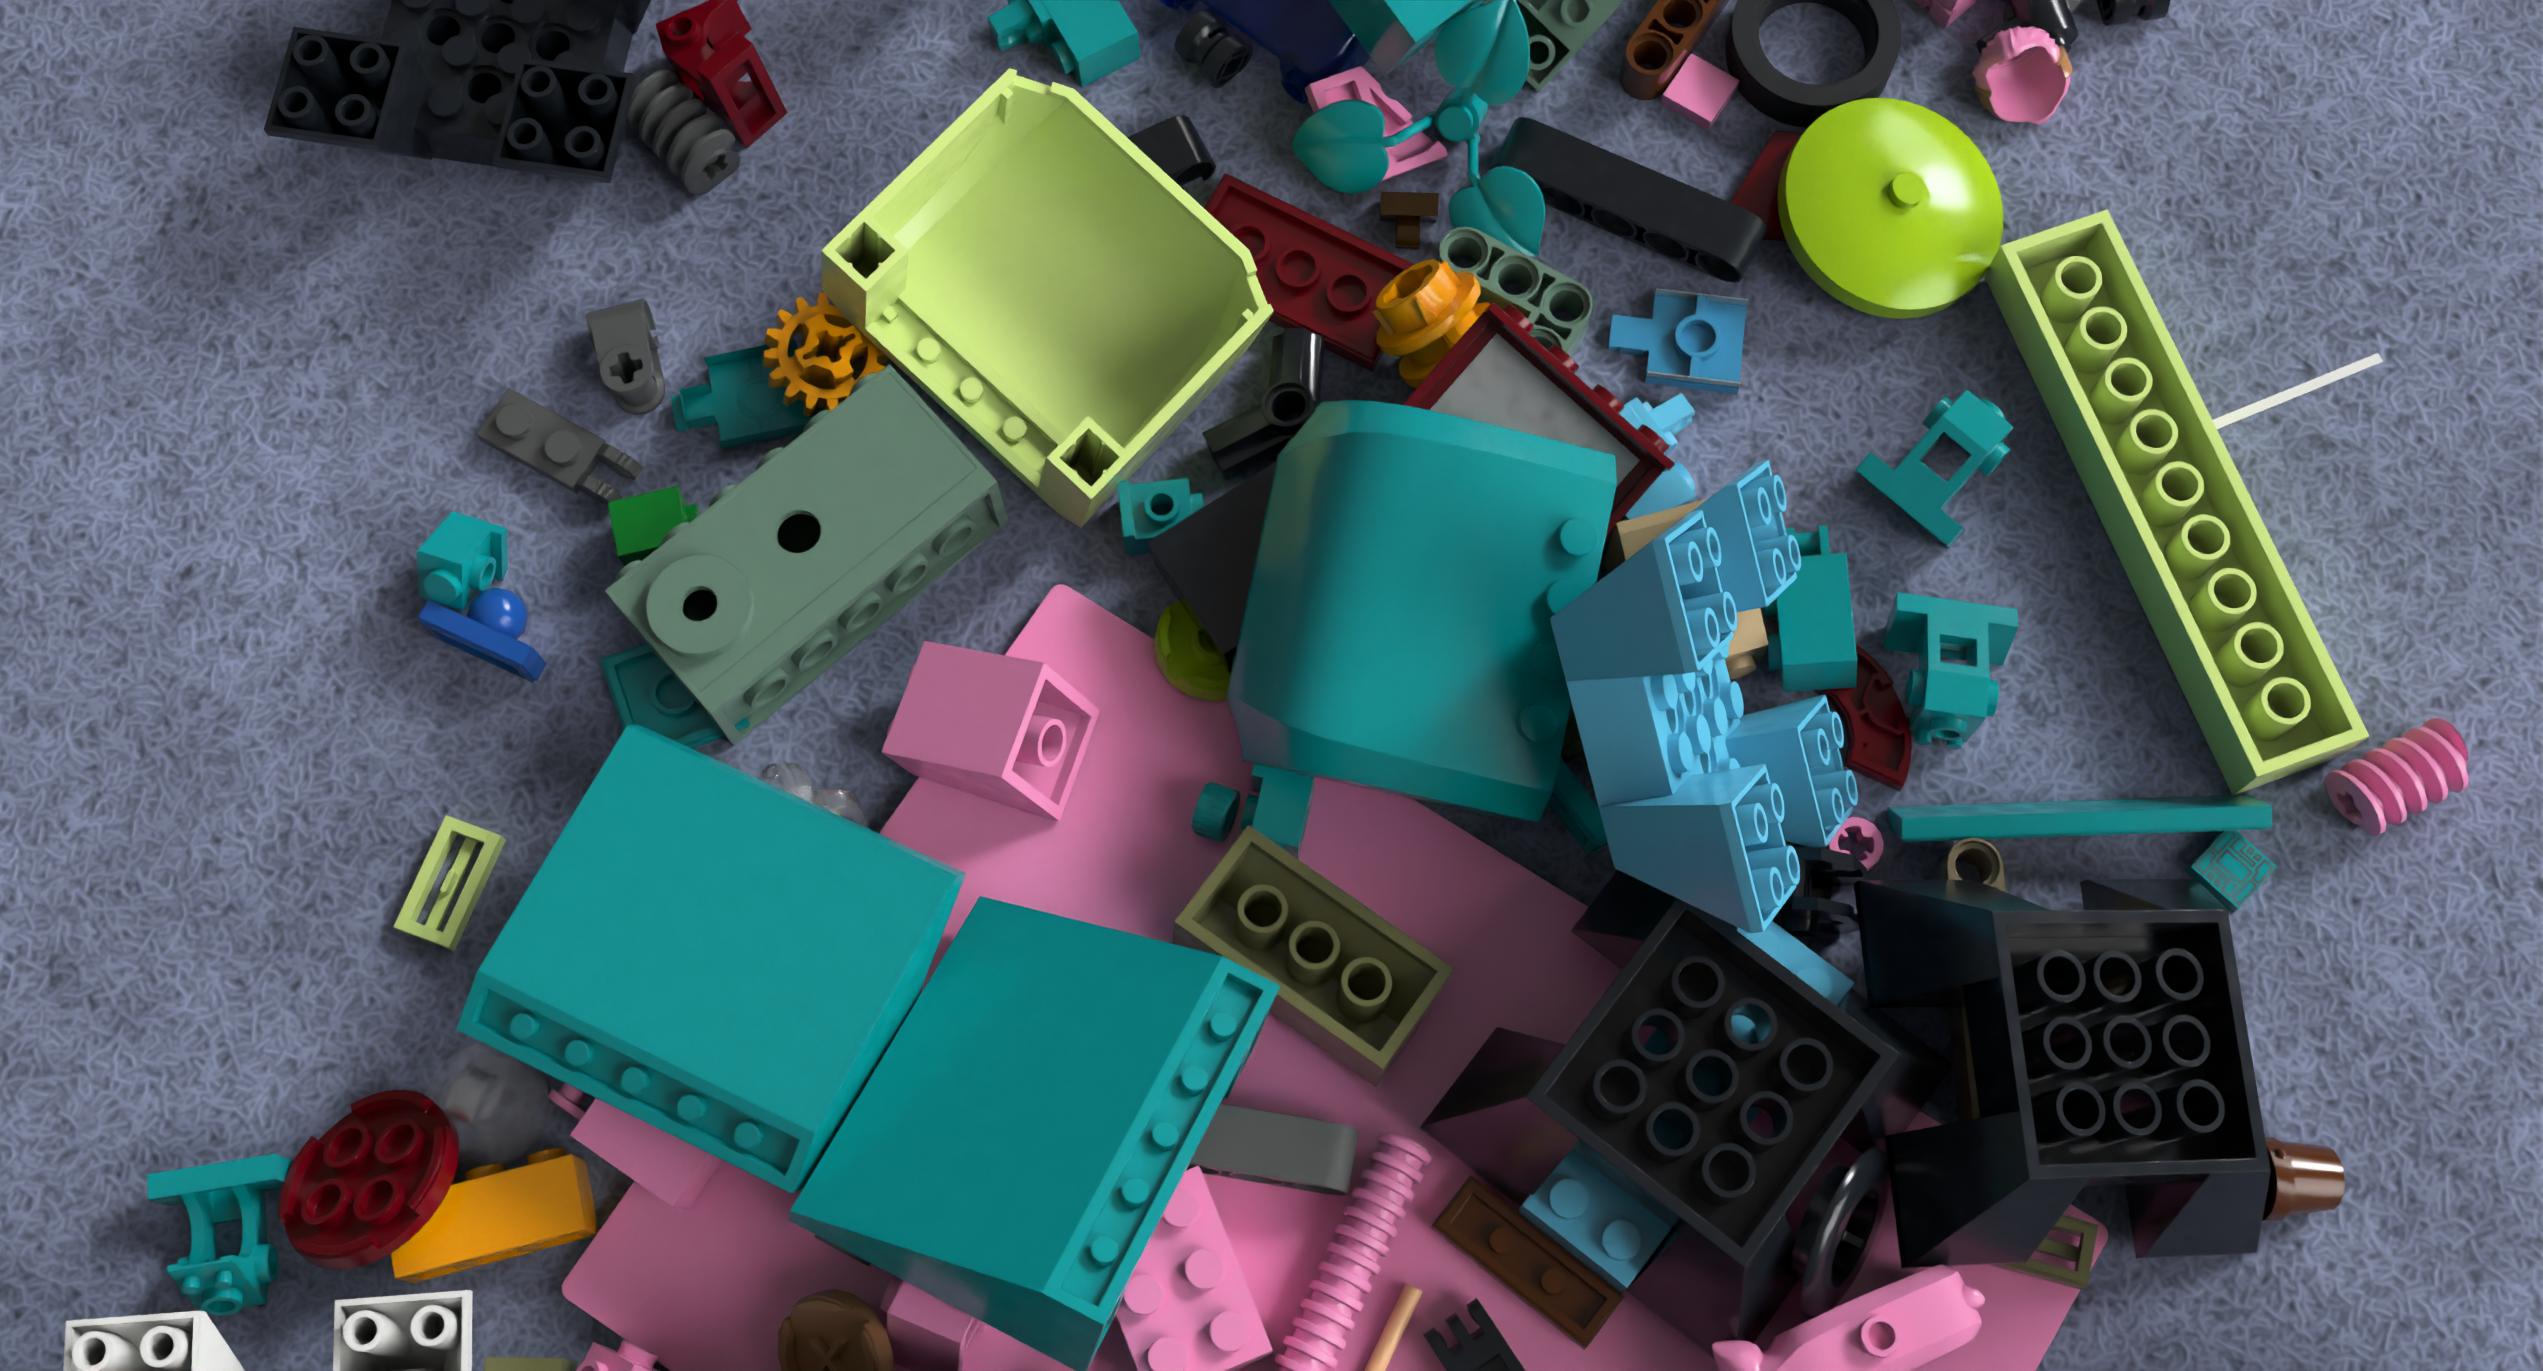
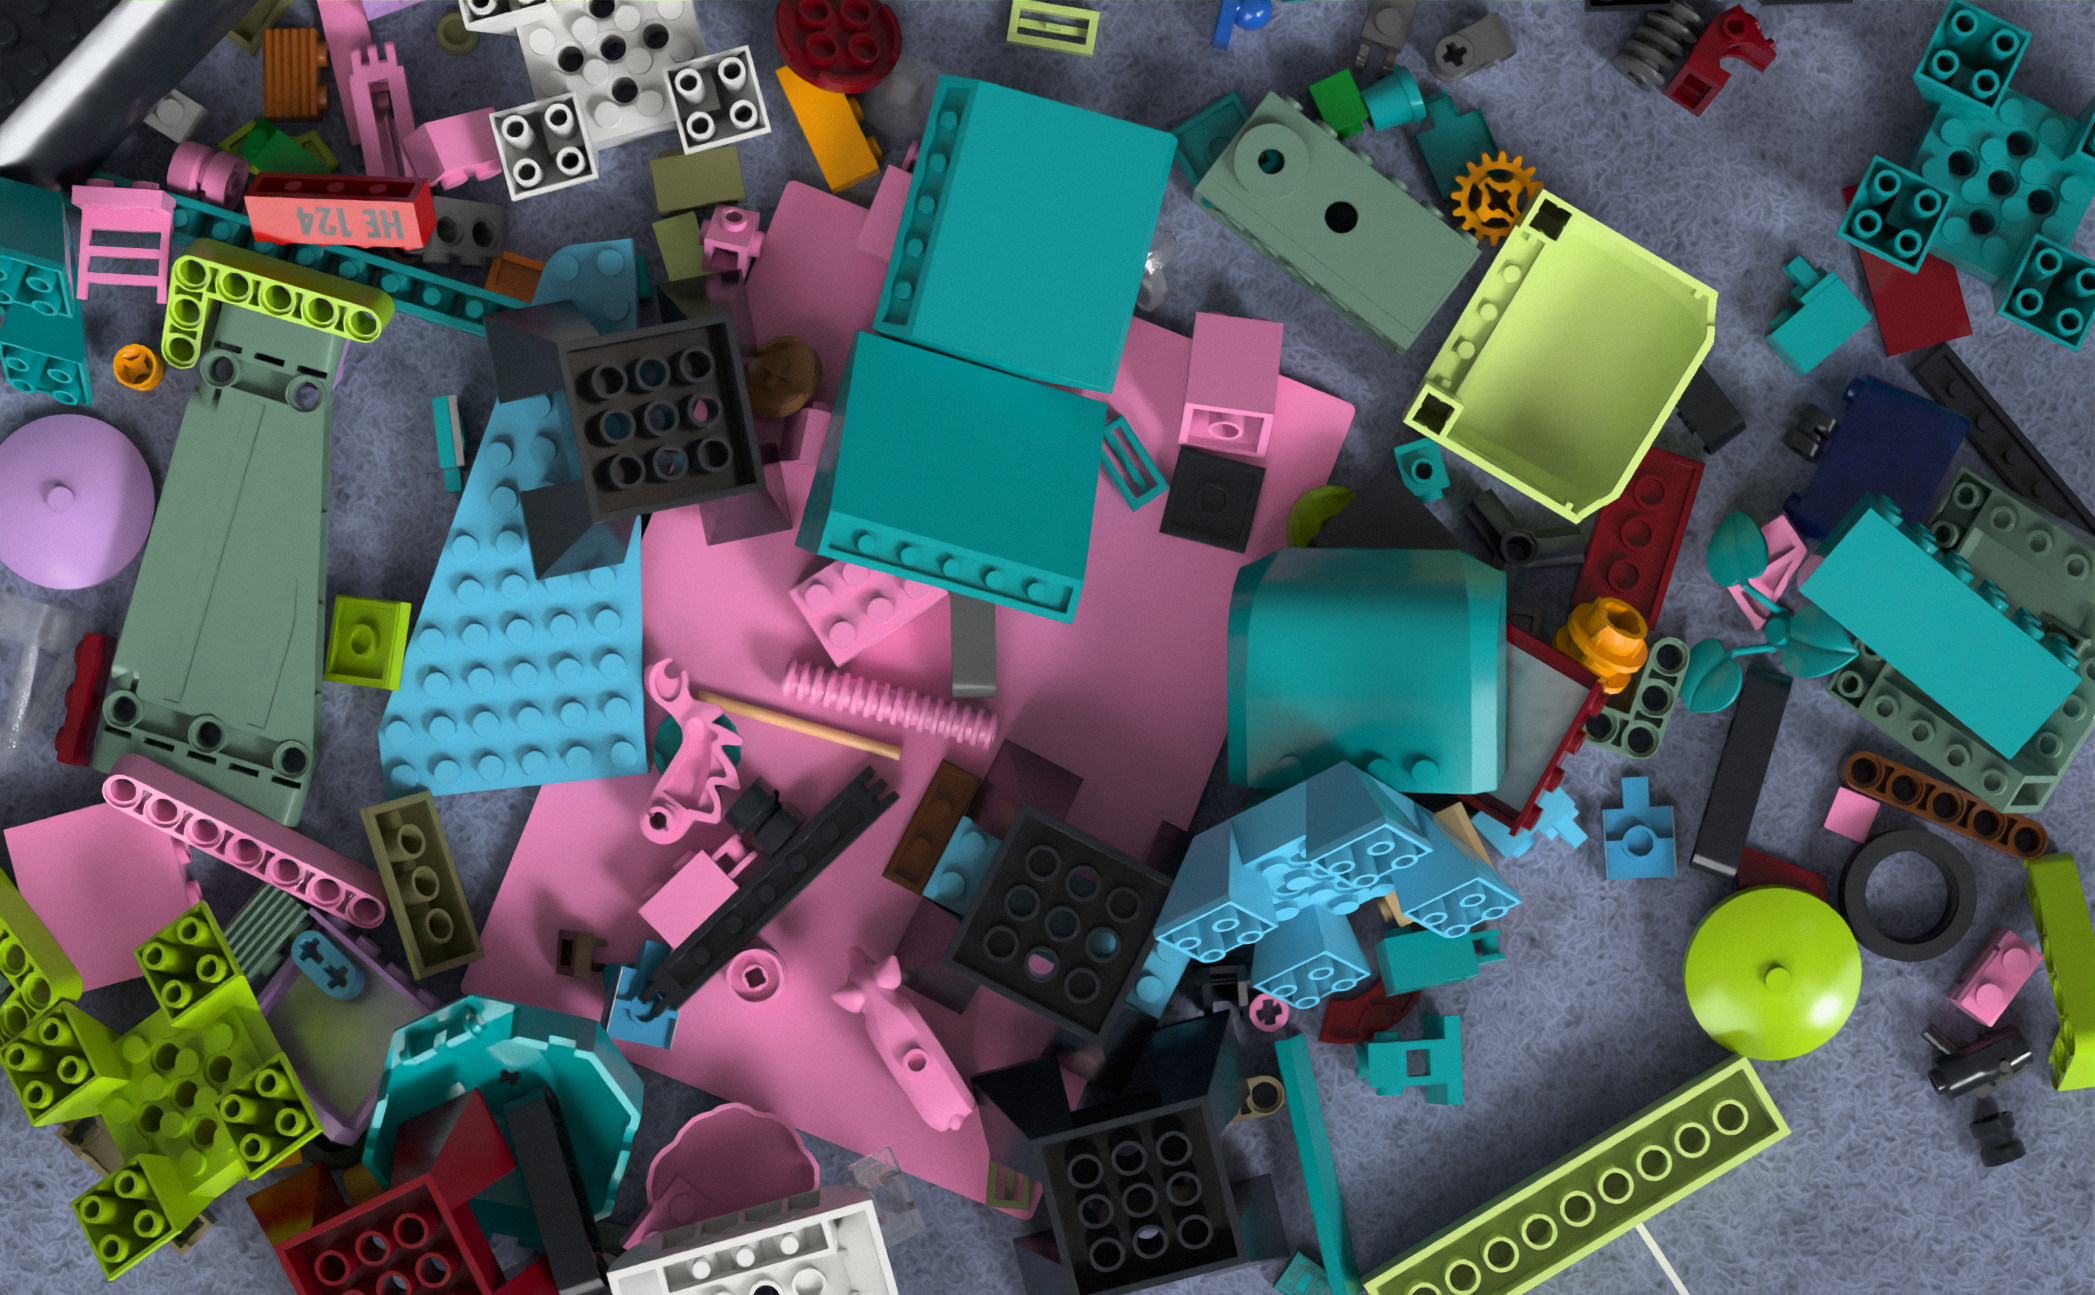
camera: 70 degrees right, 15 degrees up
(667, 453) = (1394, 100): none -> teal piece
(1069, 865) = (1147, 494): none -> teal tile
(1142, 787) = (1212, 500): none -> black tile
(1215, 811) = (1202, 555): teal axle -> none
(1281, 806) = (1204, 598): teal brick -> none
(1339, 966) = (1110, 642): olive slope -> none
(1408, 211) = (1700, 608): dark brown tile -> none
(1839, 1230) = (985, 1030): black wheel -> none
(1918, 490) = (1595, 1052): teal tile -> none
(2022, 75) = (1904, 1059): bright pink hair -> none

